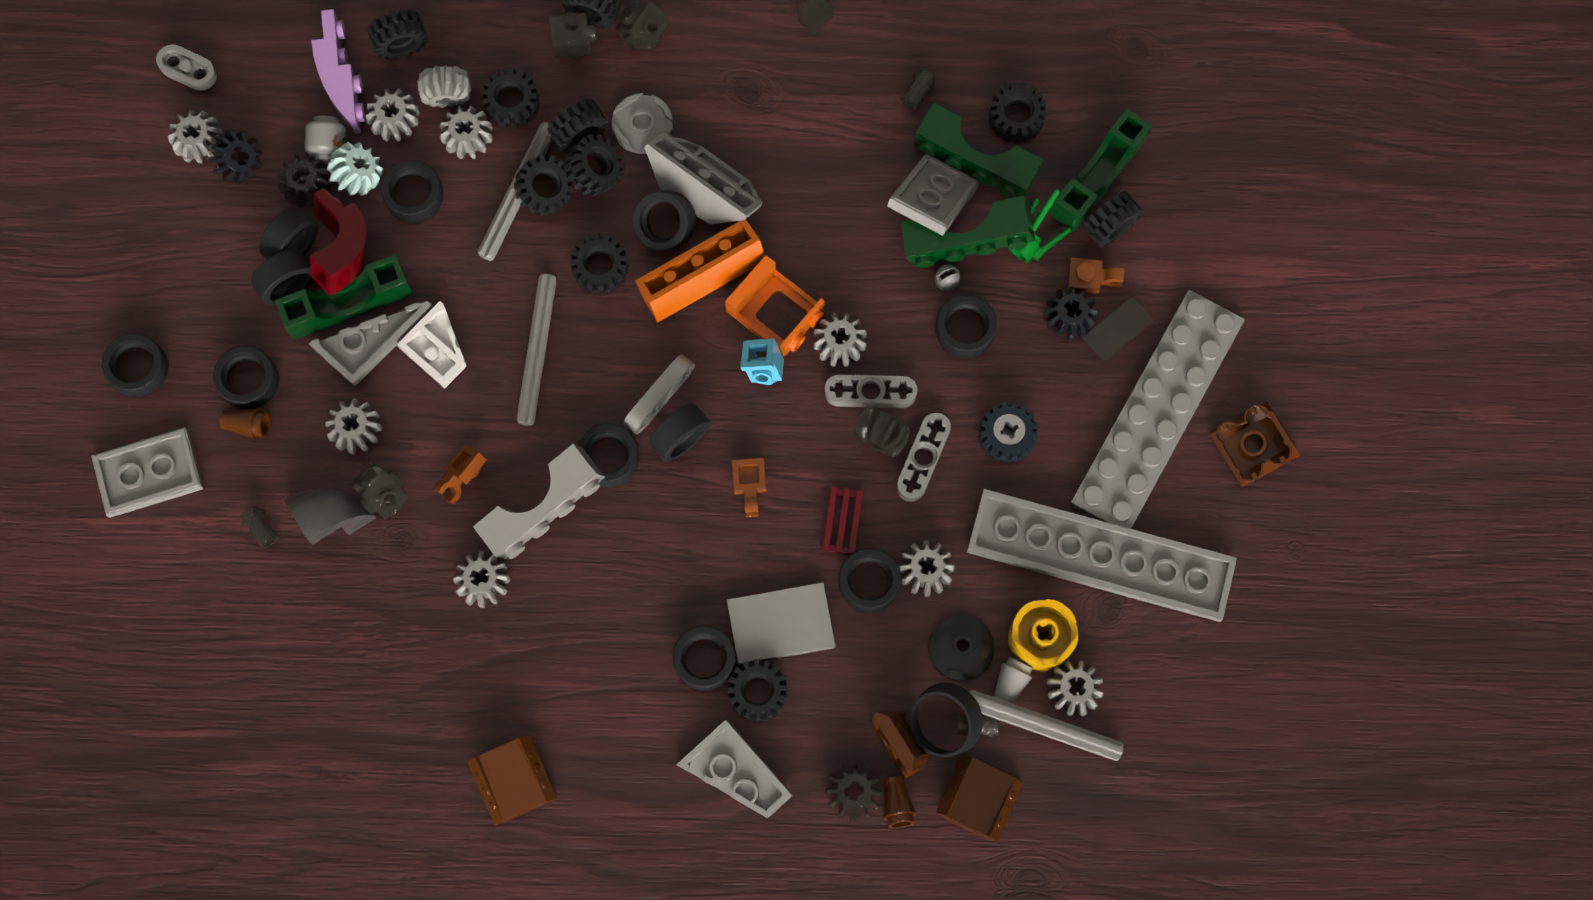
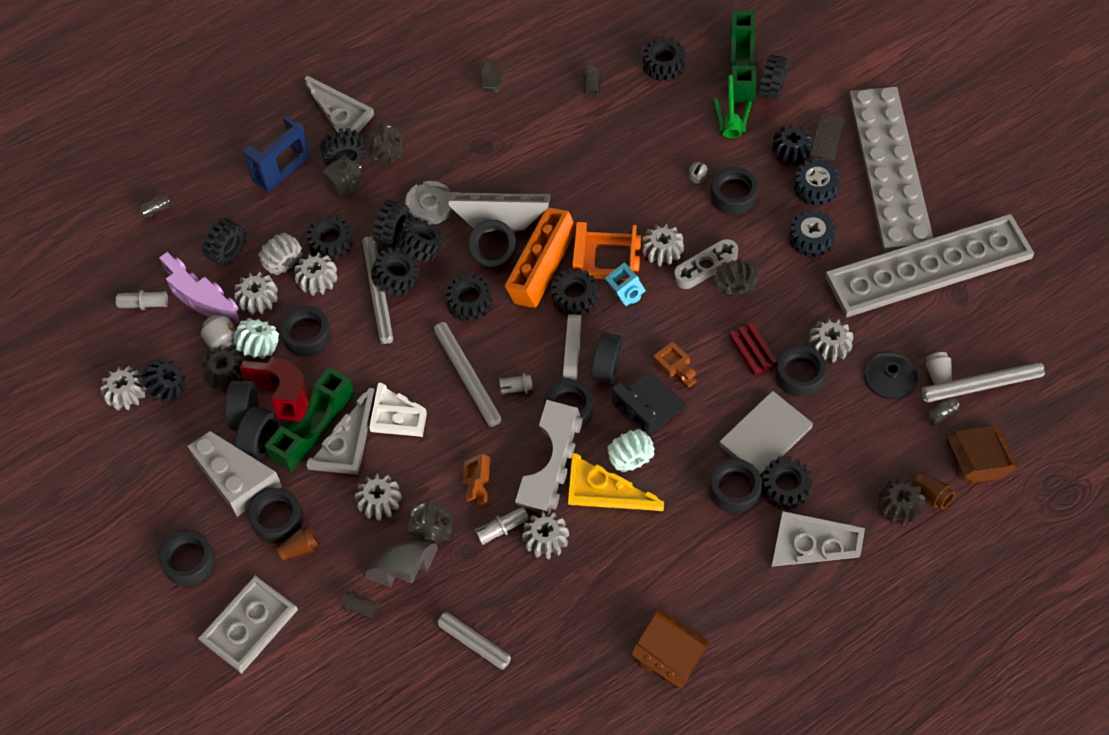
camera: 30 degrees left, 15 degrees down
(188, 69) = (85, 351): light grey plate -> none
(230, 303) = (232, 471): none -> light grey wedge
(280, 45) = (142, 299): none -> light grey axle
(338, 638) = (474, 640): none -> light grey axle
(448, 538) = (501, 525): none -> light grey axle
(571, 565) = (598, 488): none -> yellow wing
(581, 398) = (516, 384): none -> light grey pin
(626, 550) = (631, 450): none -> light aqua gear
(689, 508) = (647, 403): none -> black bracket
(713, 349) = (571, 280): none -> black tyre
(898, 742) = (904, 450): reddish brown slope -> none
(933, 194) = (653, 126): light grey tile -> none
(940, 439) = (770, 290): light grey beam -> none
(969, 706) = (917, 391): black tyre -> none
(1005, 226) = (673, 155): dark green arch -> none
(1009, 172) = (632, 97): dark green arch -> none
(1035, 618) = (937, 328): yellow brick -> none
(1066, 365) = (825, 177): none -> black wheel
(1087, 688) = (982, 349): light grey gear -> none
(1089, 275) = (785, 117): dark orange plate -> none
(1254, 443) = (963, 147): reddish brown slope -> none

